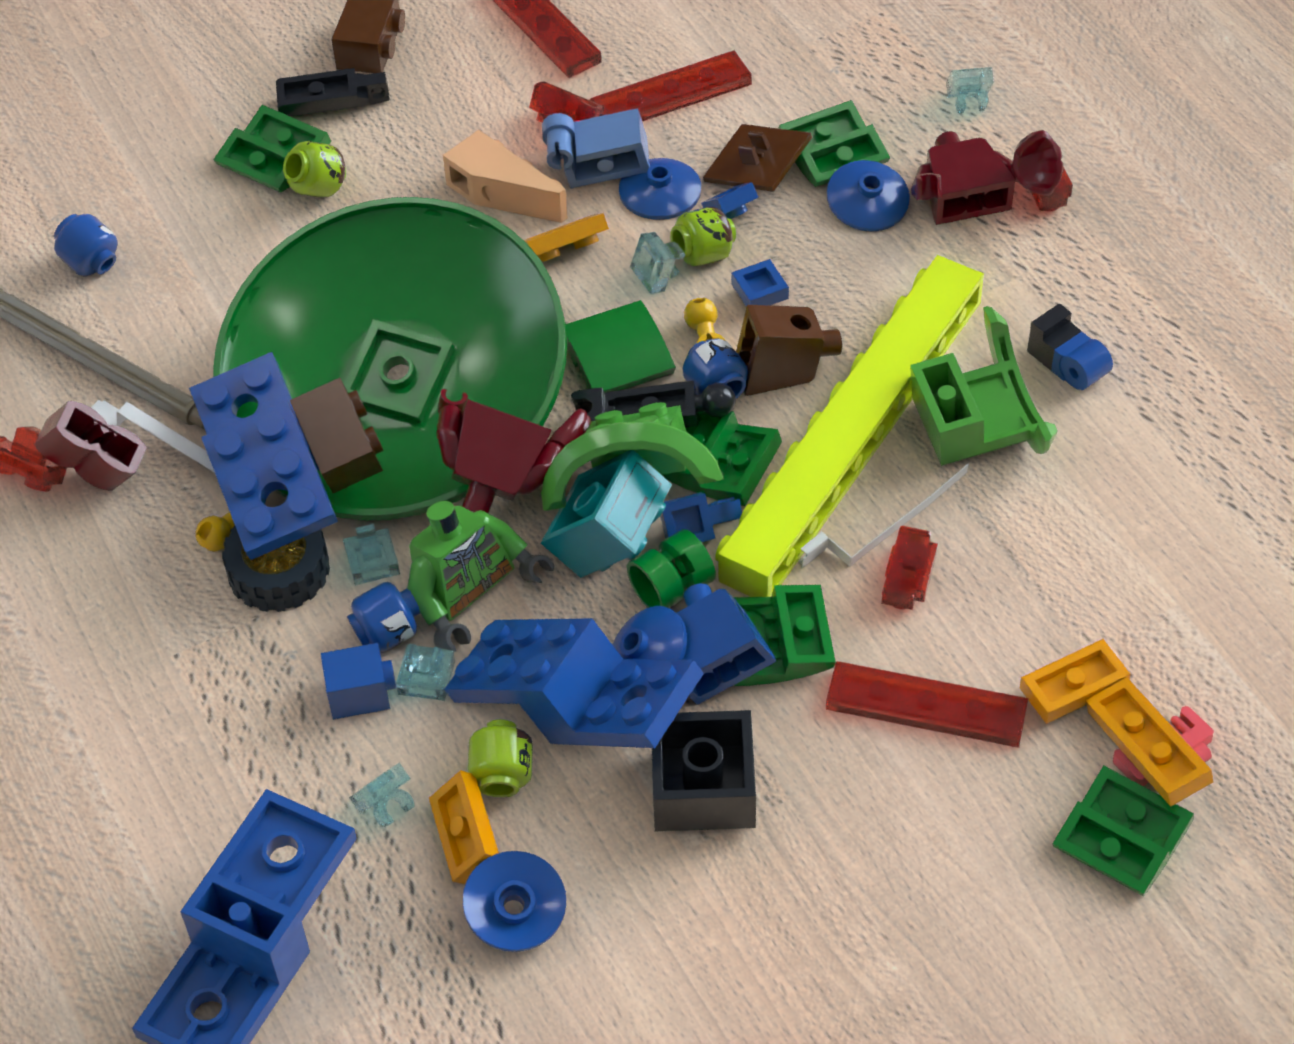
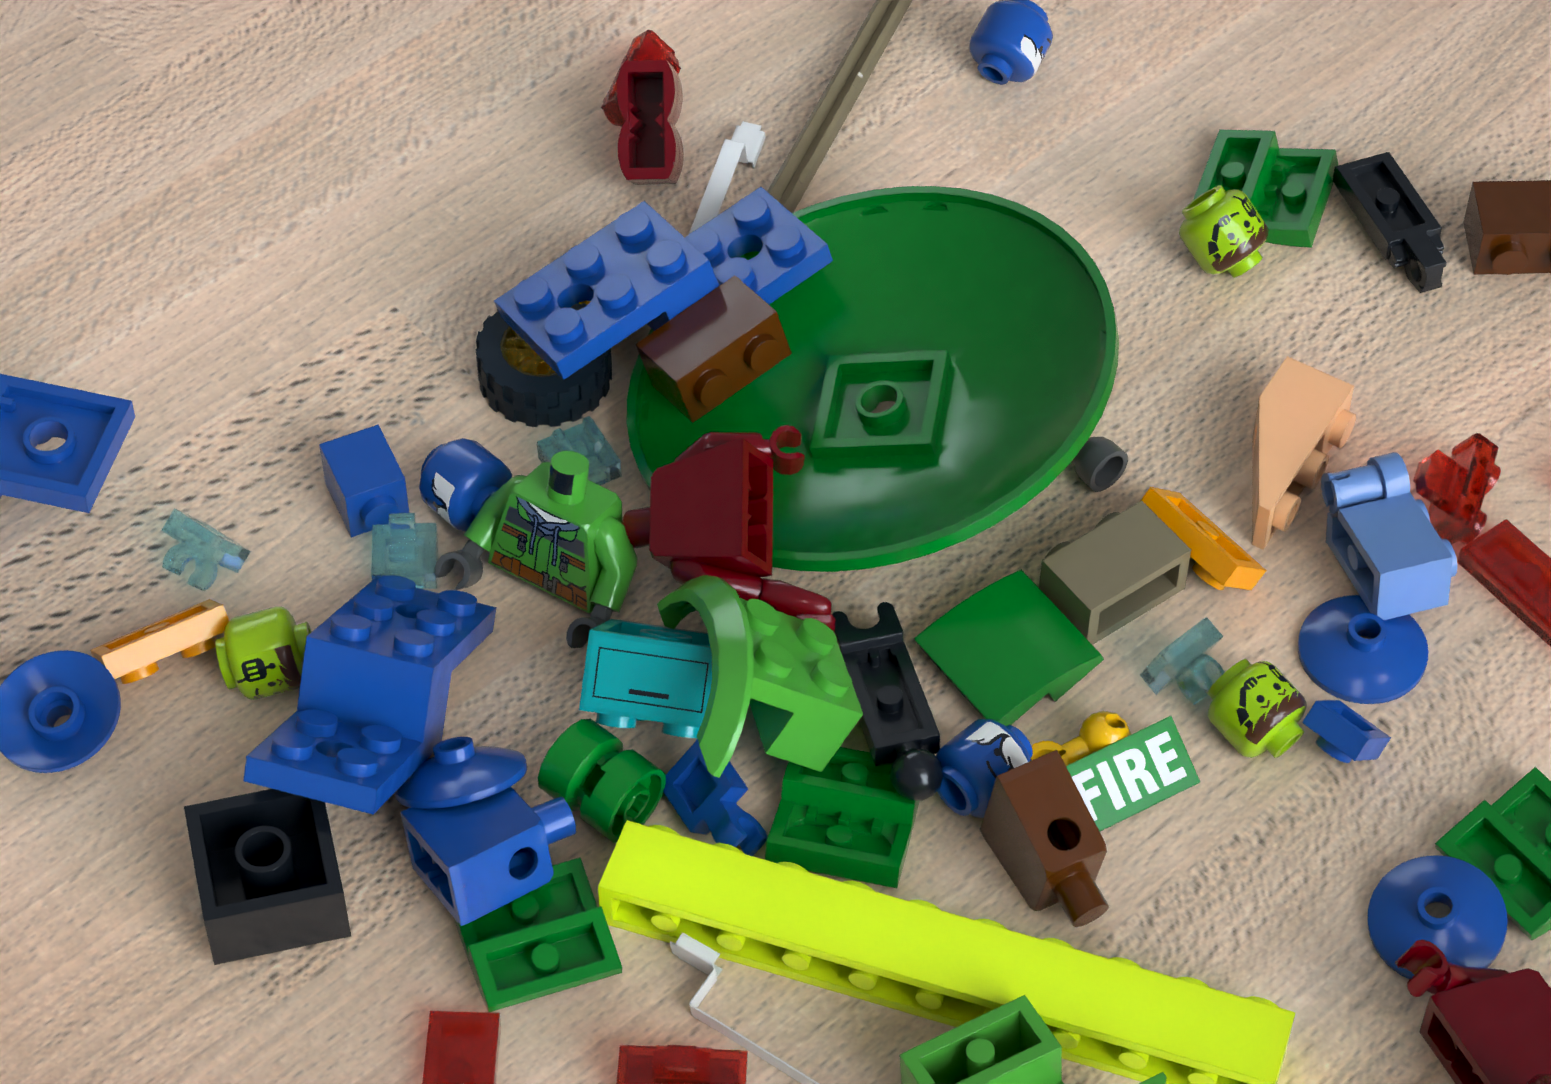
camera: 75 degrees right, 0 degrees up
(578, 277) = (1115, 571): none -> dark tan piece
(727, 305) = (1134, 773): none -> sticker
(758, 157) = (1457, 753): reddish brown piece -> none
(760, 284) = (1185, 801): blue plate -> none

